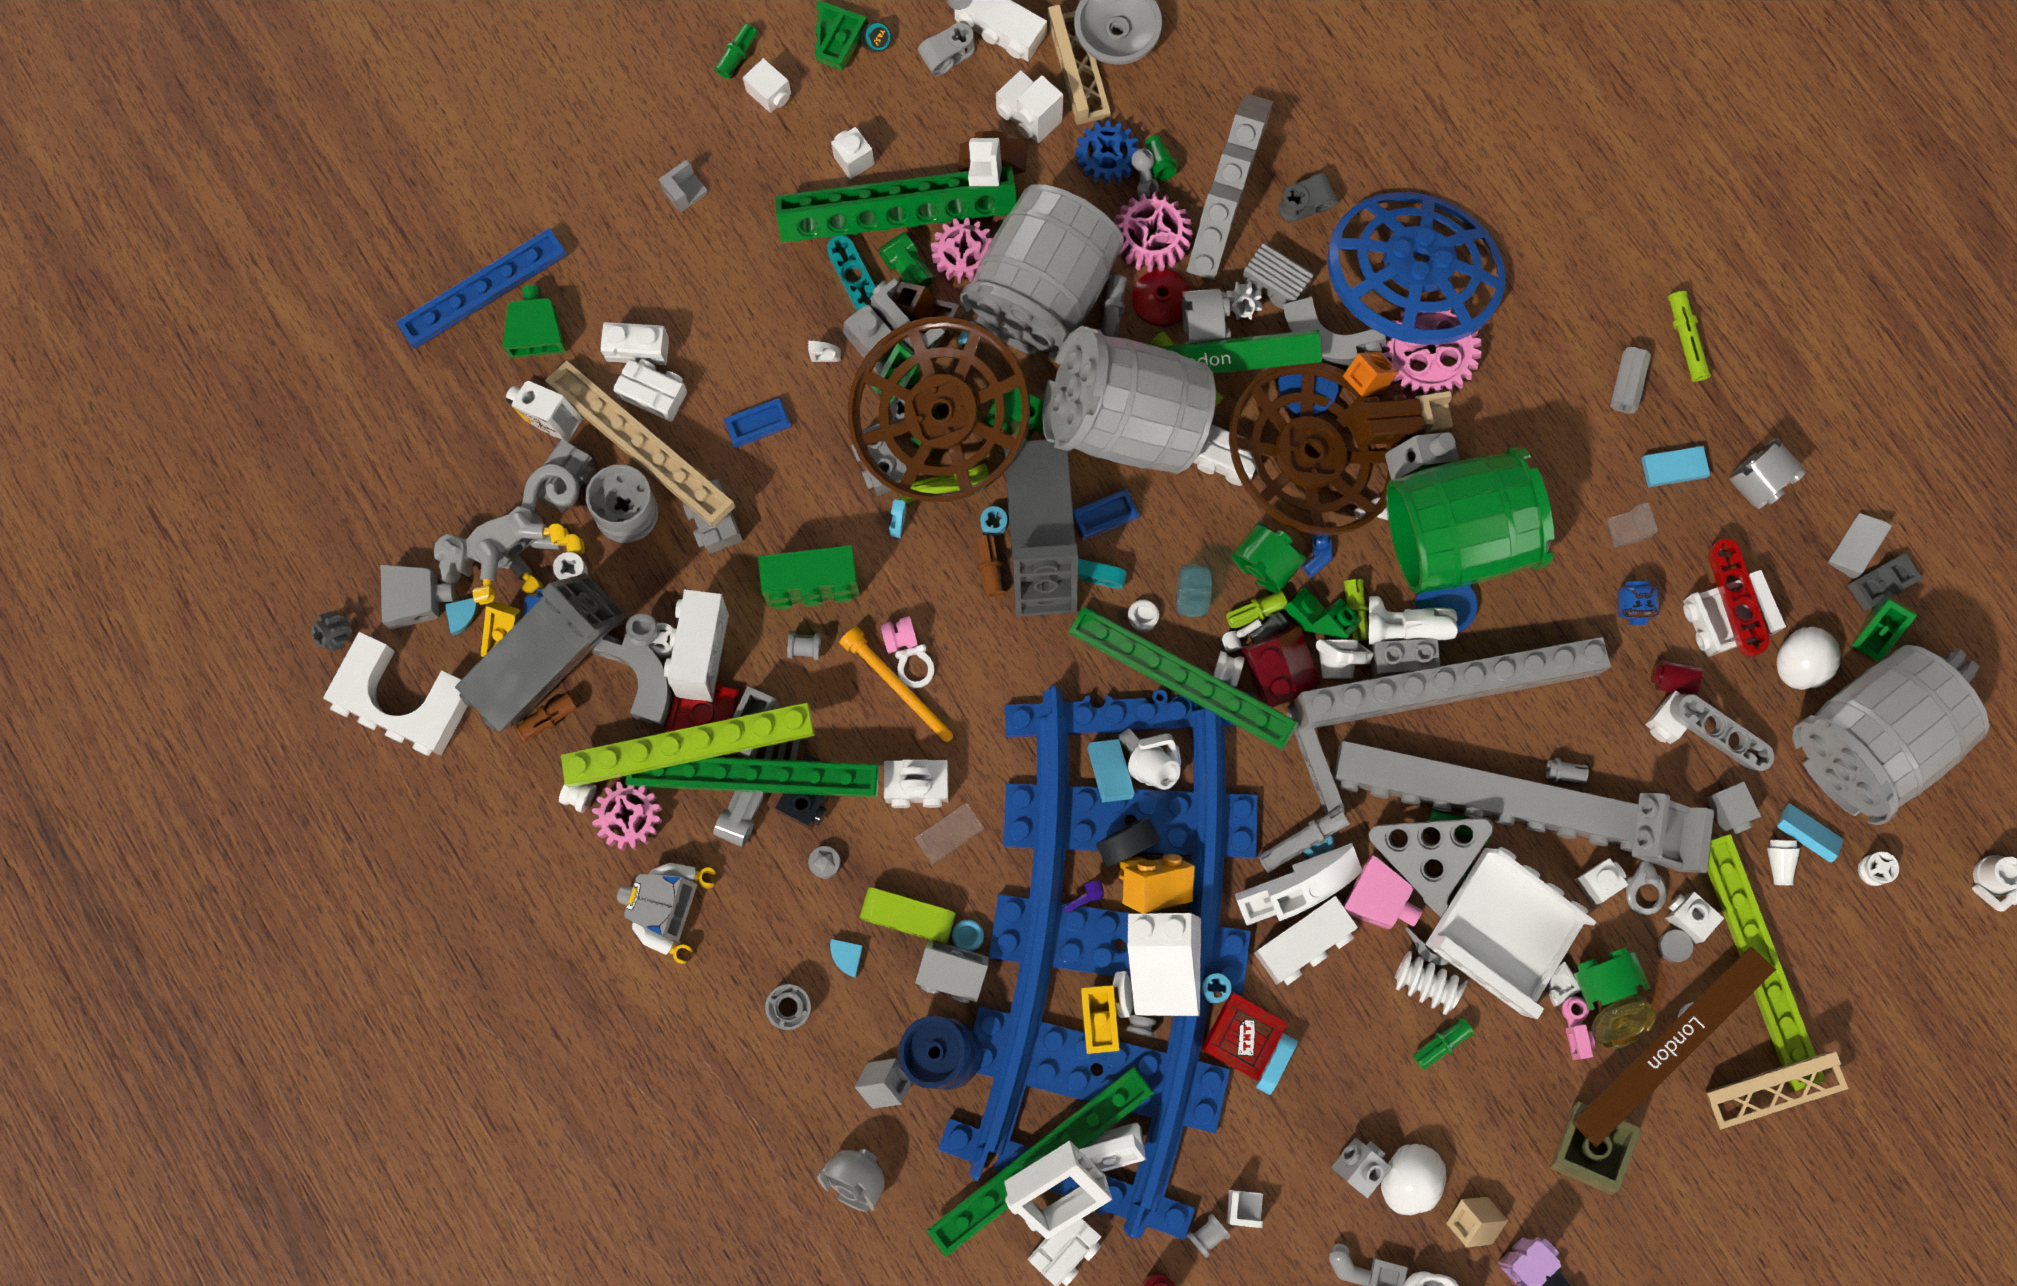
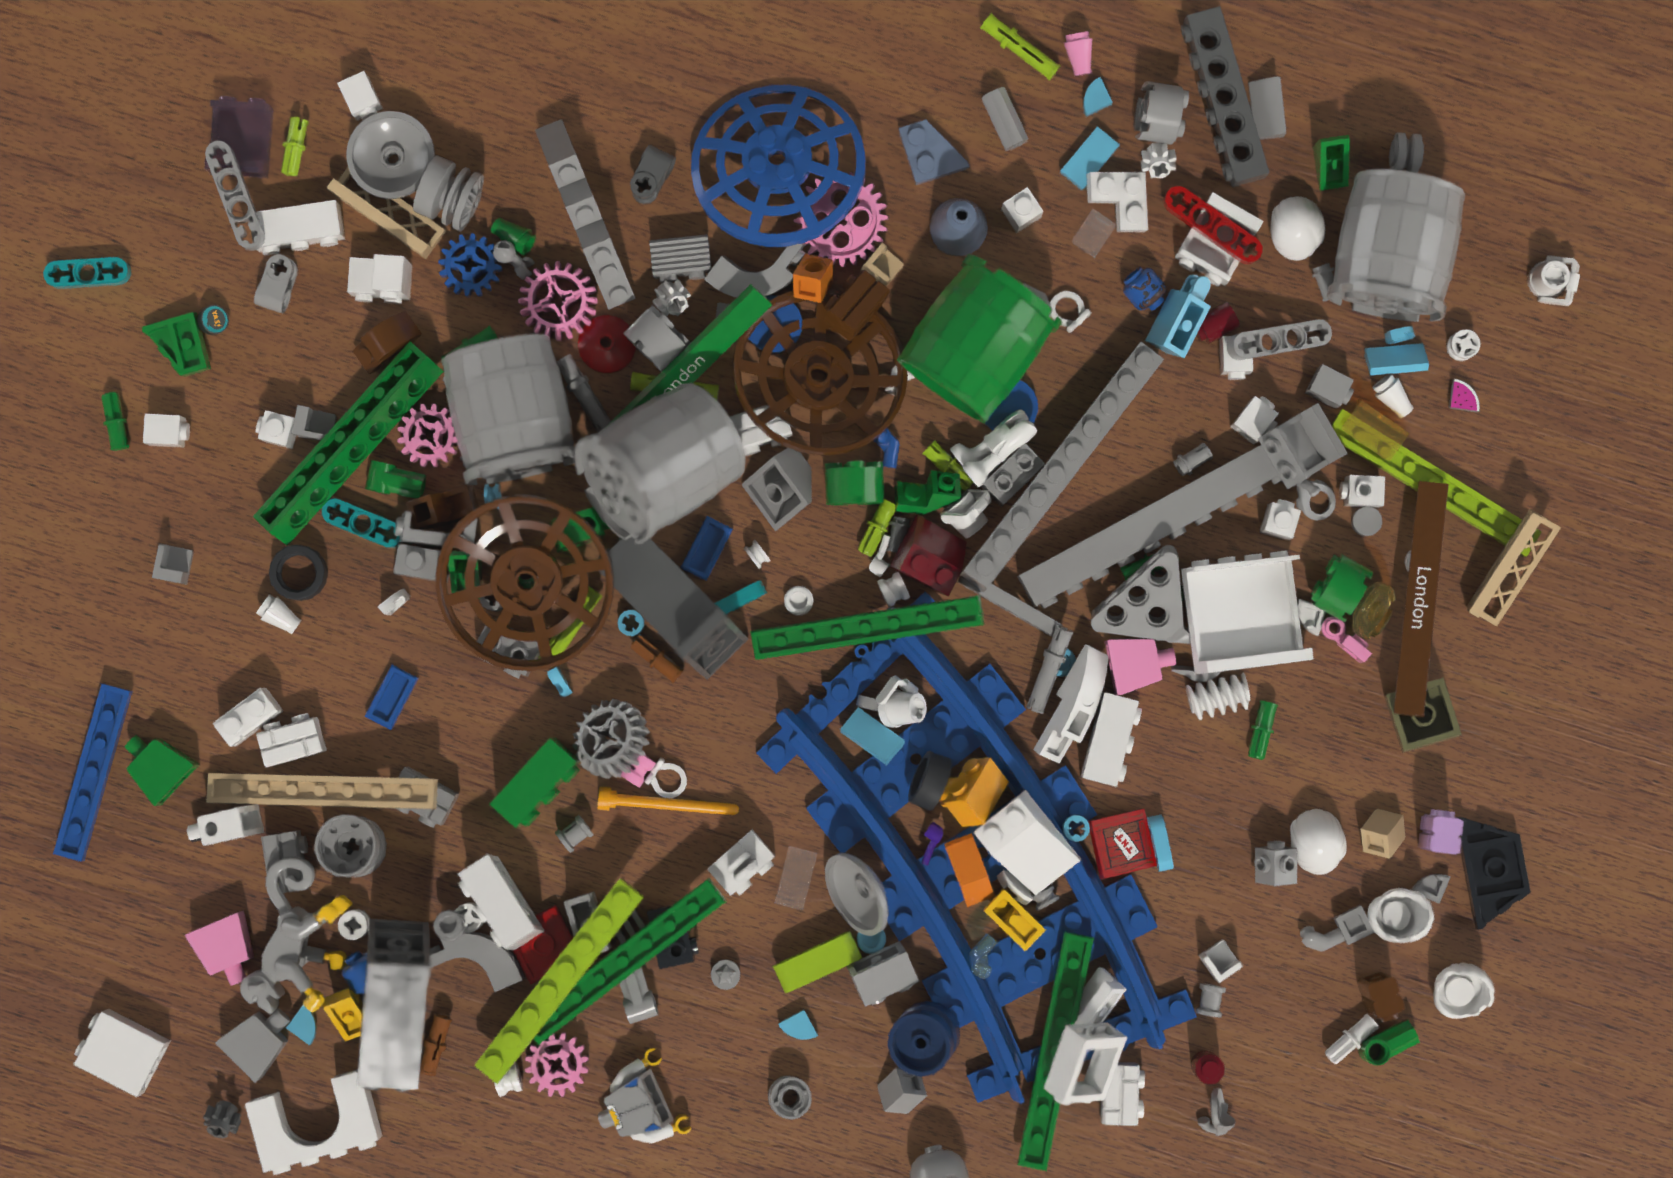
camera: 45 degrees left, 10 degrees up
(305, 514) = (121, 1052): none -> white brick
(457, 499) = (223, 946): none -> bright pink torso
(727, 285) = (278, 614): none -> white cone
(766, 249) = (276, 569): none -> black tyre
(878, 166) = (312, 423): none -> light grey panel
(899, 593) = (606, 756): none -> light grey gear
(985, 162) = (391, 360): white panel -> none
(988, 883) = (857, 893): none -> light grey dish
(1043, 1026) = (979, 957): none -> clear light blue arm
(1097, 945) = (969, 870): none -> orange slope
(1137, 83) = (445, 192): none -> light grey wheel
(1141, 550) = (756, 554): none -> white bush
(1193, 590) = (821, 554): clear light blue gear -> none
(1206, 512) = (781, 487): none -> light grey slope
(1428, 450) = (907, 308): light grey torso -> none
(1524, 425) = (956, 235): none -> sand blue cone
(1546, 359) = (929, 152): none -> sand blue wing
(1569, 582) = (1083, 314): none -> white piece
(1586, 459) = (1022, 210): none -> white brick
(1646, 779) = (1256, 419): none -> white brick
(1651, 647) = (1181, 317): none -> medium azure brick
(1684, 513) = (1127, 193): none -> white plate
(1720, 424) = (1096, 97): none -> medium azure tile
(1733, 511) = (1158, 160): none -> white gear
(1735, 377) = (1079, 52): none -> bright pink cone
(1745, 874) = (1375, 430): none -> clear yellow panel
(1799, 712) = (1324, 278): none -> light grey pin
(1828, 815) = (1399, 335): none -> medium azure tile
(1844, 913) = (1463, 397): none -> dark pink tile
(1864, 441) = (1212, 24): none -> dark grey brick
(1885, 582) = (1307, 121): dark grey slope -> none

